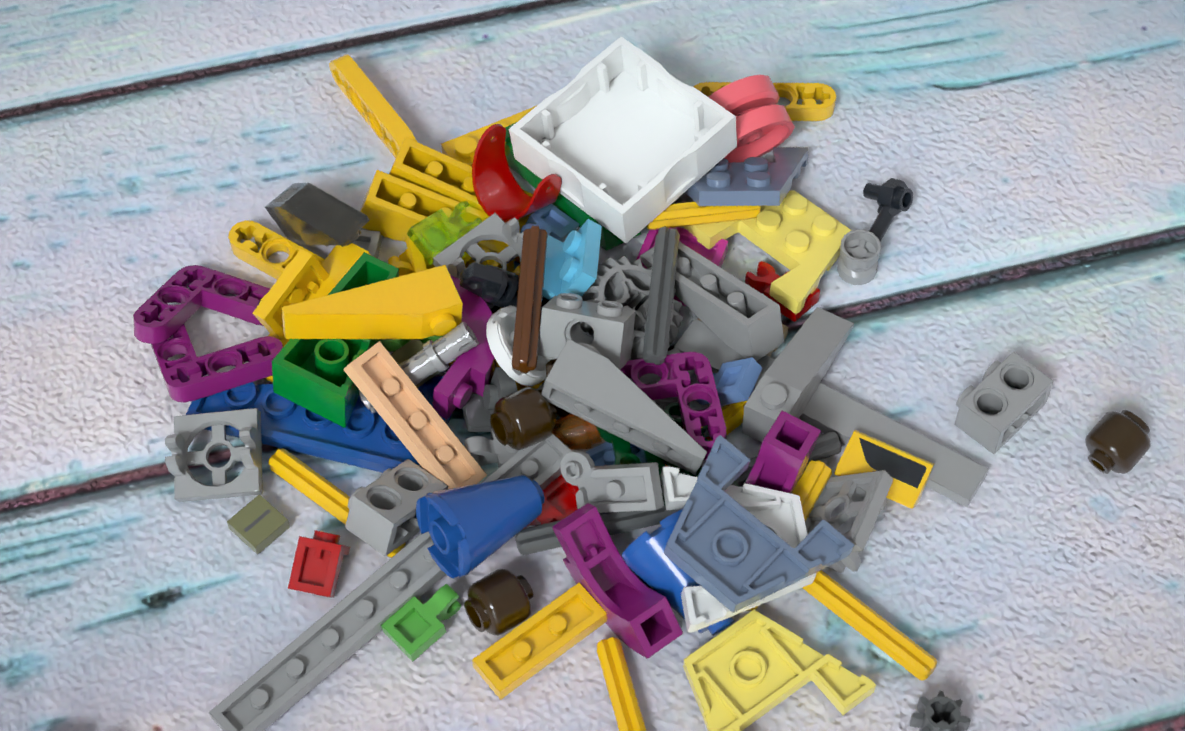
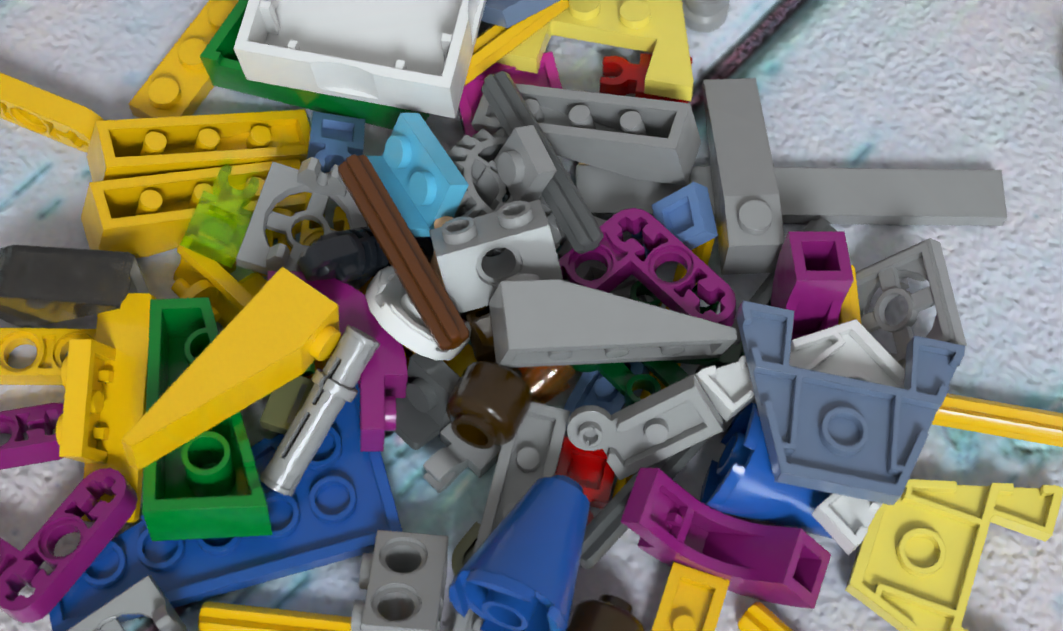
camera: 35 degrees left, 10 degrees up
(413, 418) = (358, 480): light nougat plate -> none
(497, 187) = (249, 130): red piece -> none
(644, 287) = (524, 164): none -> light grey plate
(870, 455) = (889, 227): slope -> none
(1009, 406) = (972, 86): light grey brick -> none

